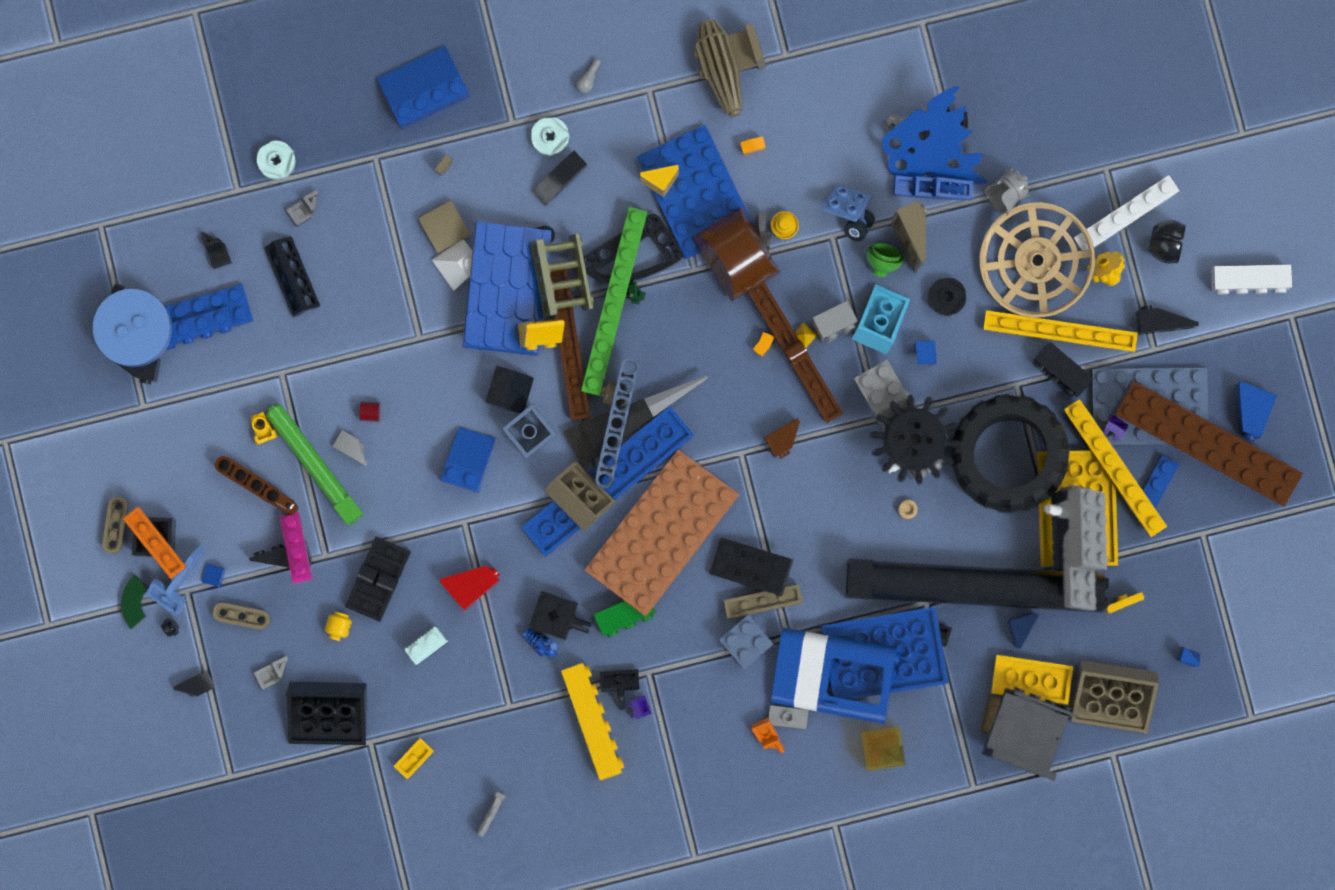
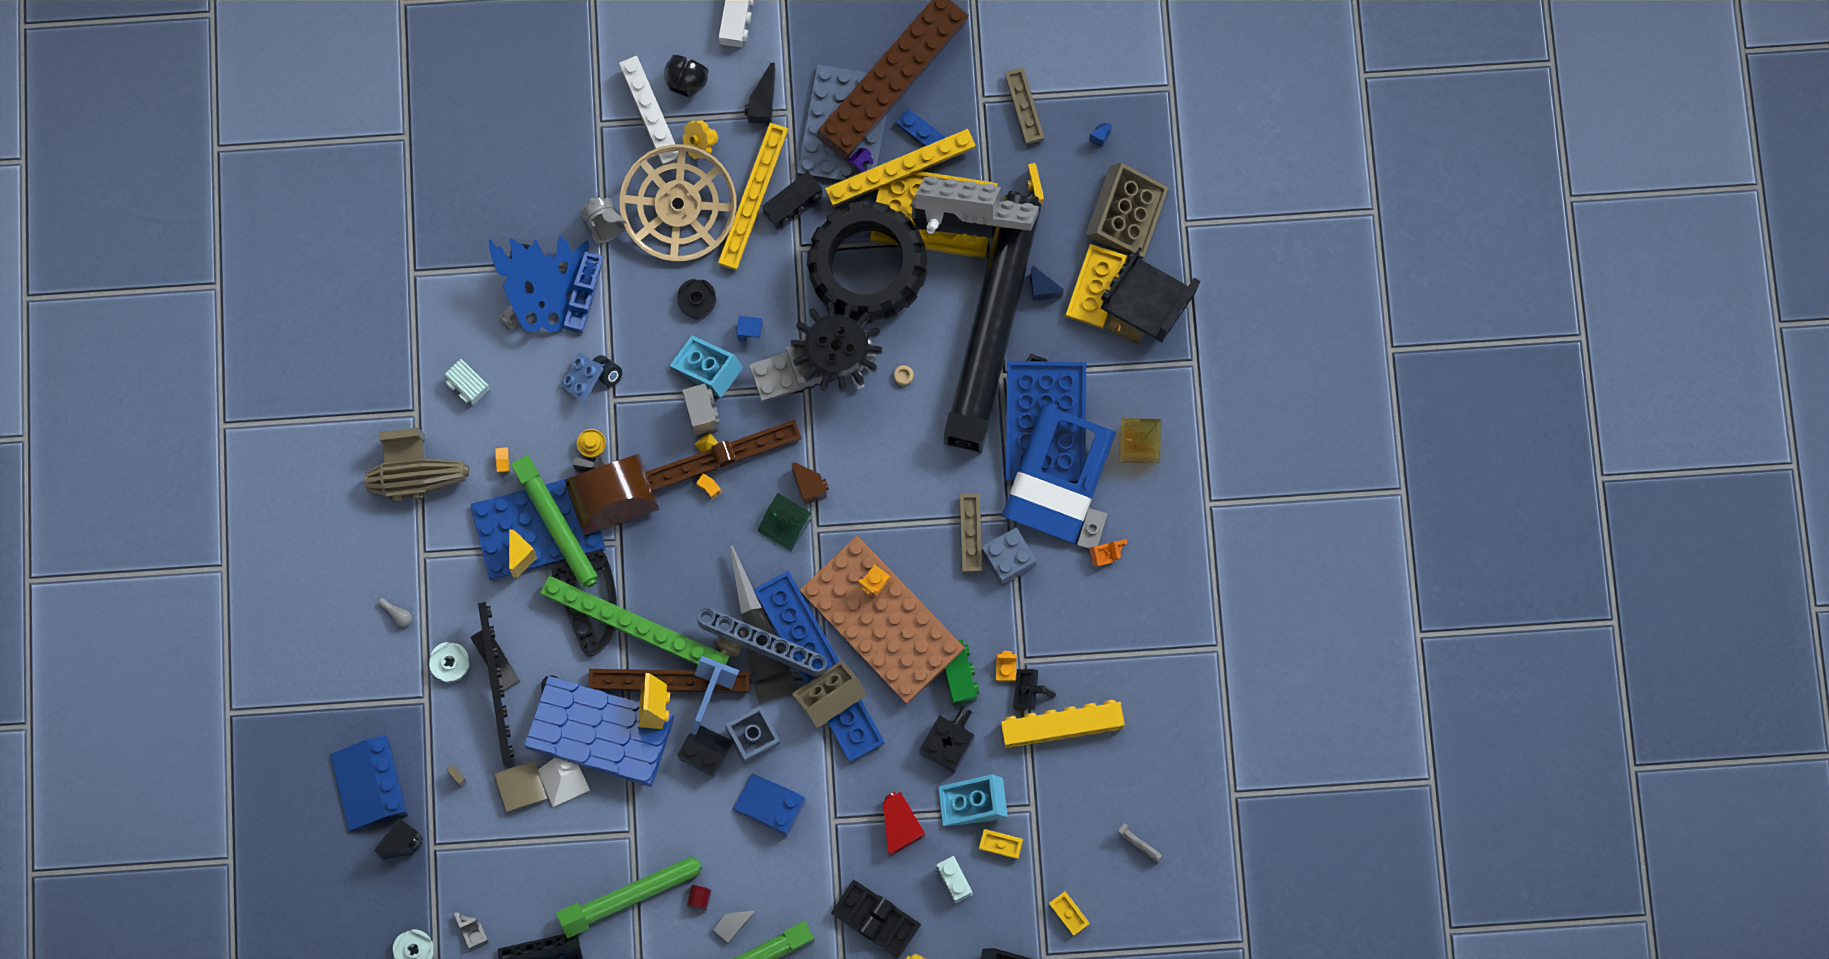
camera: 80 degrees left, 10 degrees down
(330, 304) = (577, 918): none -> bright green brick
(373, 127) = (399, 841): none -> black slope
(468, 683) = (1001, 844): none -> yellow plate
(504, 649) = (973, 801): none -> medium azure slope
(527, 185) = (495, 673): none -> black plate
(543, 645) = (975, 761): blue piece -> none
(544, 268) = (597, 689): olive fence -> none
(579, 386) = (717, 674): none -> medium blue piece
(635, 293) = (632, 603): dark green hat -> none
(638, 658) = (1006, 667): none -> light orange bracket
(640, 707) = (1057, 673): dark purple tile -> none
(694, 518) = (874, 581): none -> light orange bracket
(699, 206) = (555, 521): none -> bright green brick
(740, 422) = (784, 522): none -> clear green slope
(751, 567) = (933, 536): black plate -> none
(822, 96) = (466, 382): none -> light aqua brick
(884, 258) = (646, 351): bright green piece -> none
(911, 230) = (629, 313): dark tan slope -> none
(1203, 577) = (1024, 106): none -> dark tan plate
(1253, 409) = (867, 28): blue slope -> none

